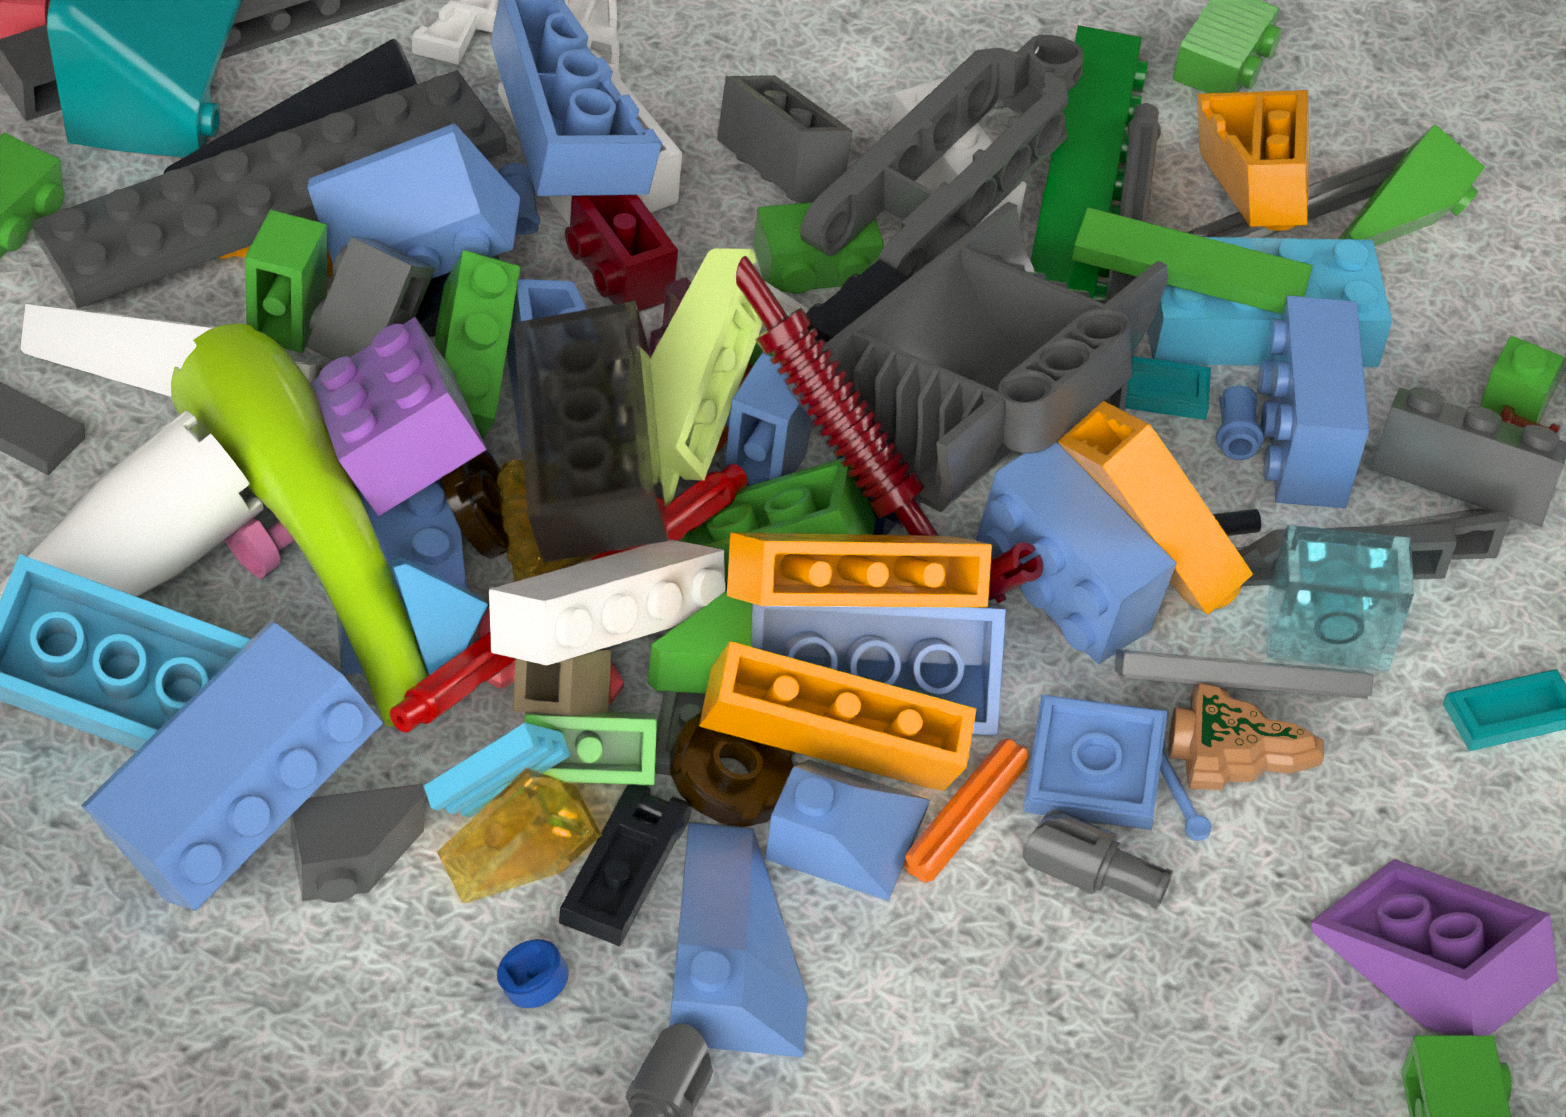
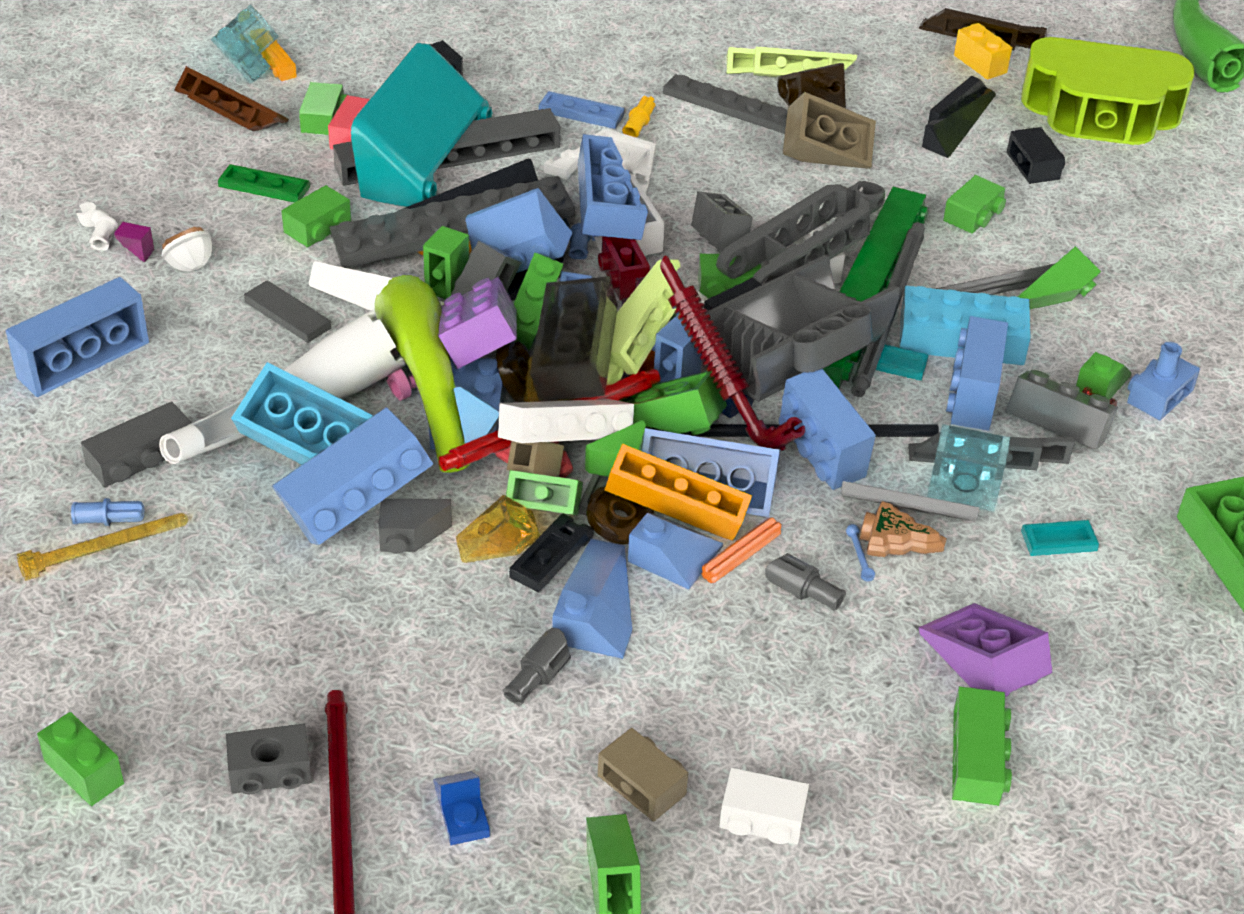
camera: 15 degrees right, 5 degrees down
(486, 773) = (484, 494): medium azure tile -> none
(532, 973) = (487, 598): blue tile -> none
(858, 570) = (702, 419): light orange brick -> none
(1096, 761) = (818, 534): medium blue plate -> none
(1154, 491) = (871, 400): light orange slope -> none
(1191, 261) = (924, 297): bright green tile -> none
(1239, 433) = (937, 386): medium blue pin -> none
(1259, 153) = (979, 253): light orange wedge -> none

